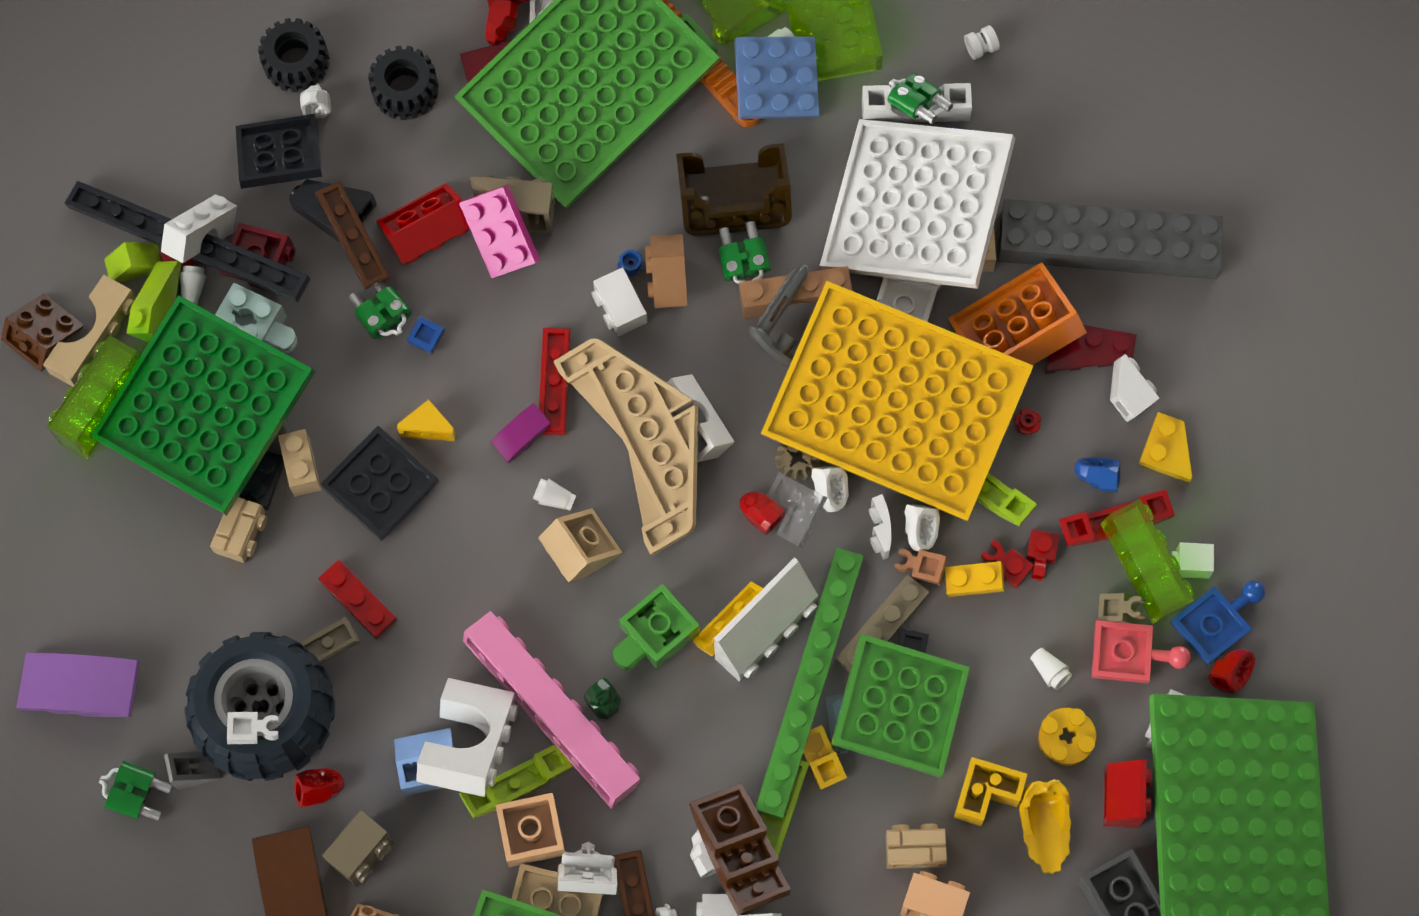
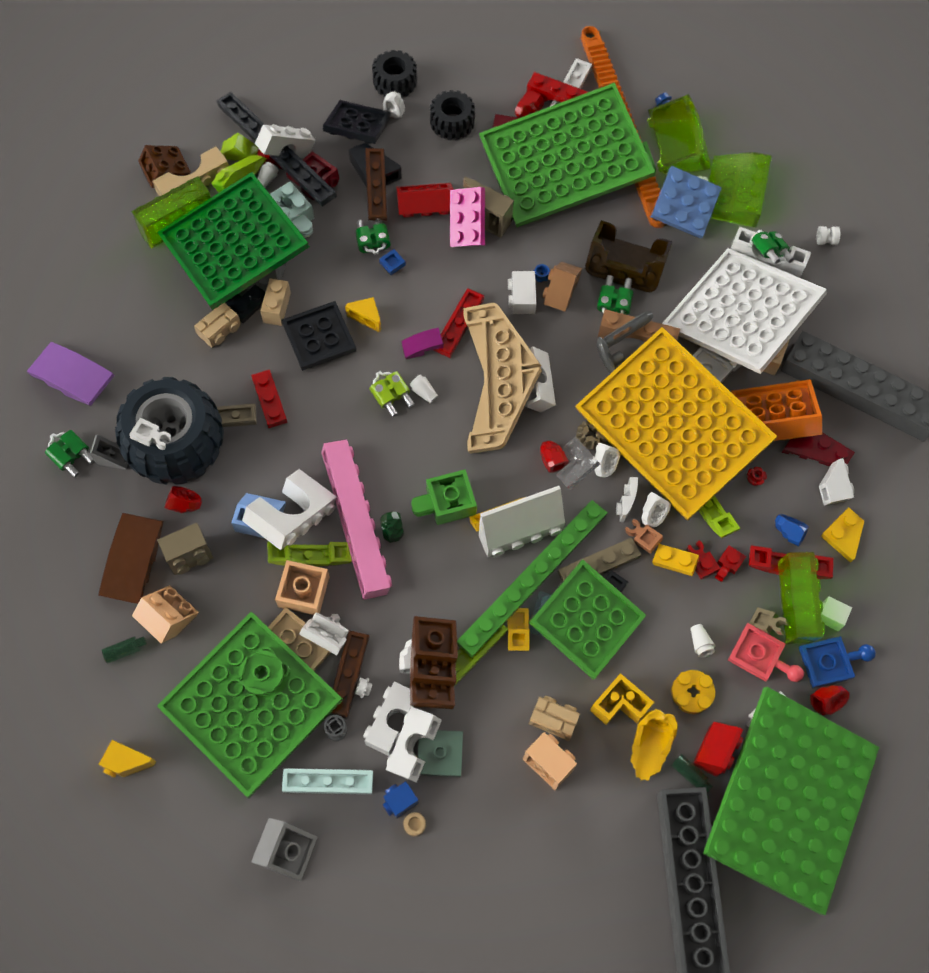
camera: 20 degrees right, 5 degrees down
(511, 516) = (389, 390): none -> lime piece
(579, 544) = (425, 425): tan slope -> none
(1107, 837) = (691, 773): none -> clear green cylinder

